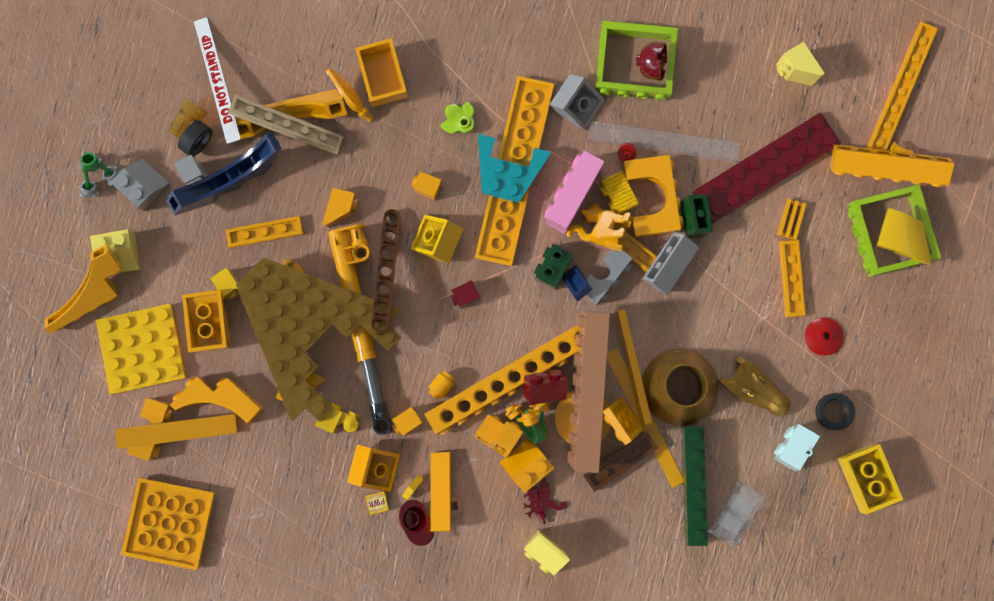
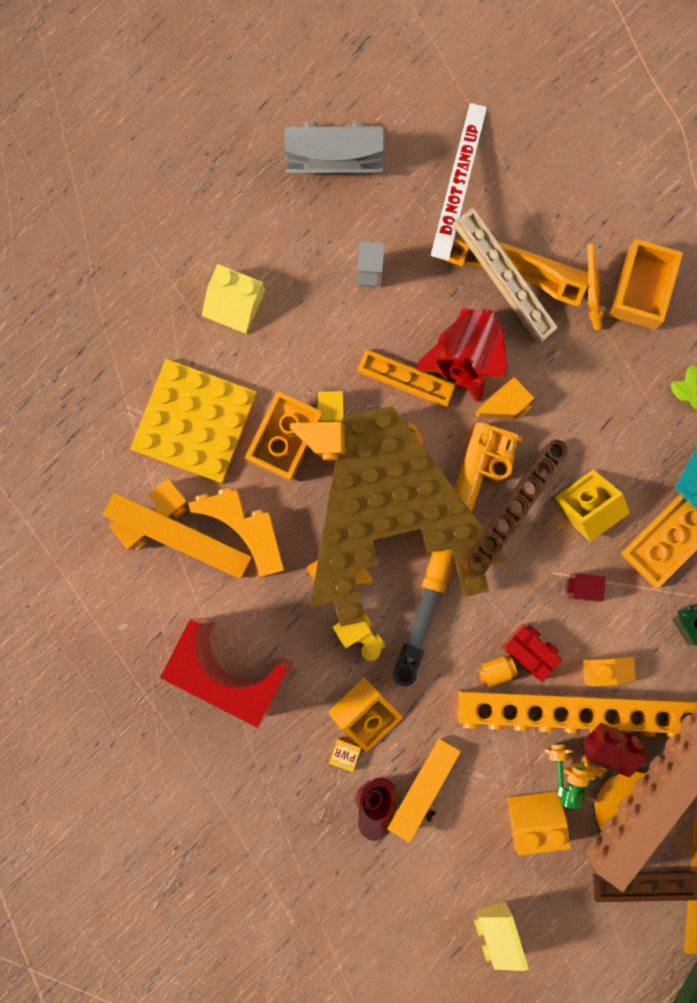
camera: 30 degrees right, 0 degrees up
(90, 163) = (266, 186): plant -> none
(93, 291) = (180, 327): light orange arch -> none
(120, 110) = (334, 149): none -> light grey piece
(140, 184) = (305, 242): light grey slope -> none
(168, 523) = (104, 630): light orange plate -> none
(187, 114) = (398, 203): clear yellow plant -> none
(195, 138) = (396, 228): black tyre -> none
(230, 178) = (406, 296): dark blue arch -> none
(230, 307) = (324, 438): none -> light orange slope
(237, 506) = (197, 673): none -> red piece
(291, 189) = (469, 351): none -> red brick
(406, 421) = (434, 687): light orange brick -> none
(412, 487) = (395, 764): yellow tile -> none
(426, 185) = (617, 439): light orange brick -> none
(455, 358) = (531, 652): none -> red brick
(498, 435) = (529, 775): light orange brick -> none
(514, 338) = (609, 671): none -> light orange slope
(539, 504) = (524, 874): dark red piece -> none
(622, 420) = (681, 839): light orange plate -> none

